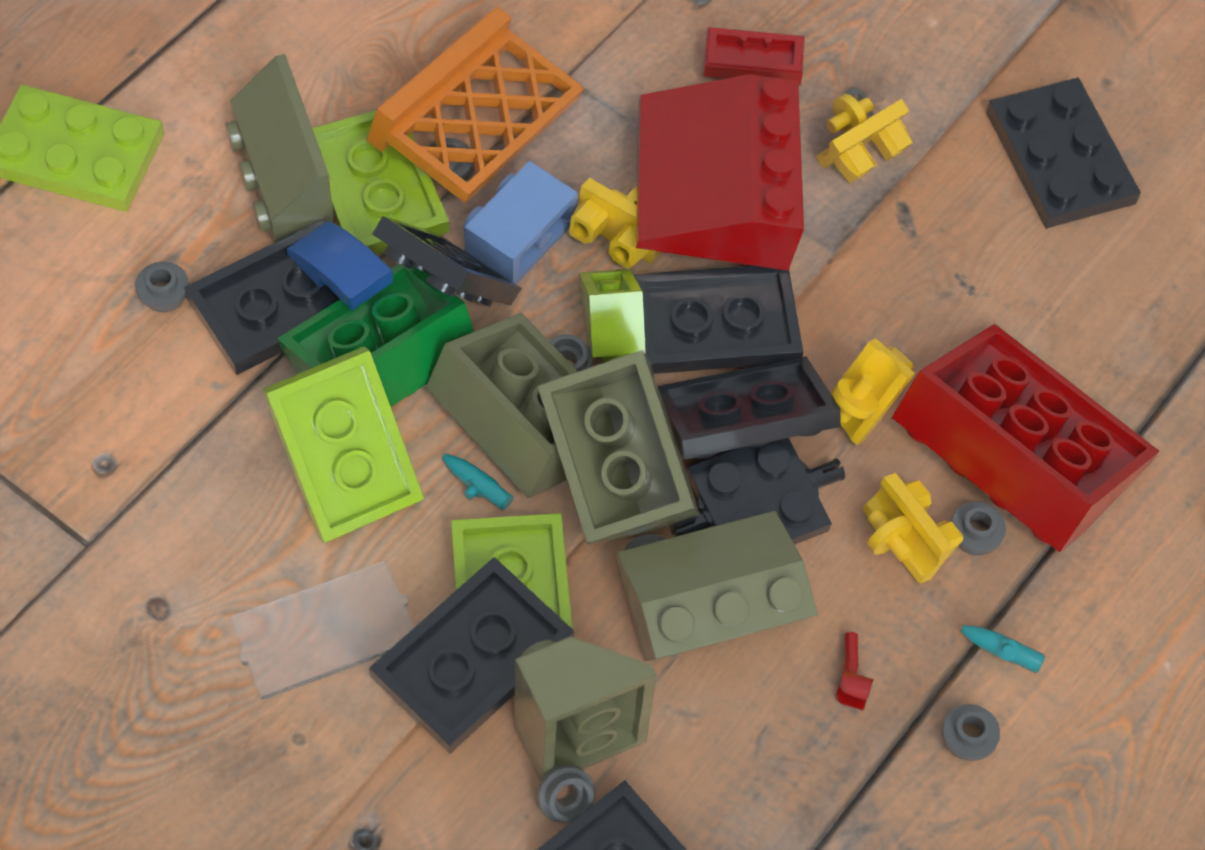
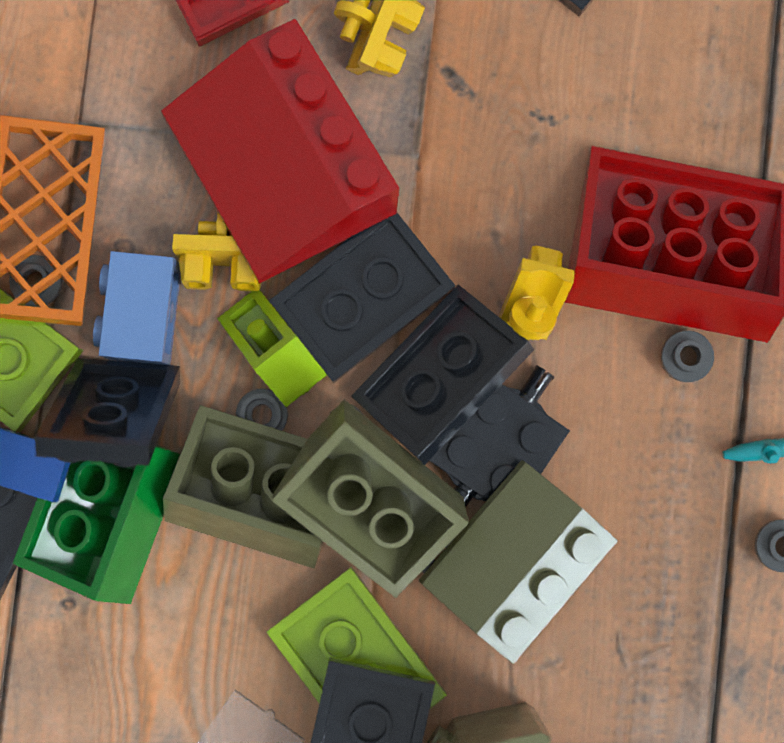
camera: 25 degrees left, 25 degrees up
(343, 444) = (135, 637): lime plate -> none
(478, 482) = (260, 571): teal helmet -> none
(853, 688) = (669, 564): red hand -> none
(907, 529) = (632, 401): yellow hips -> none

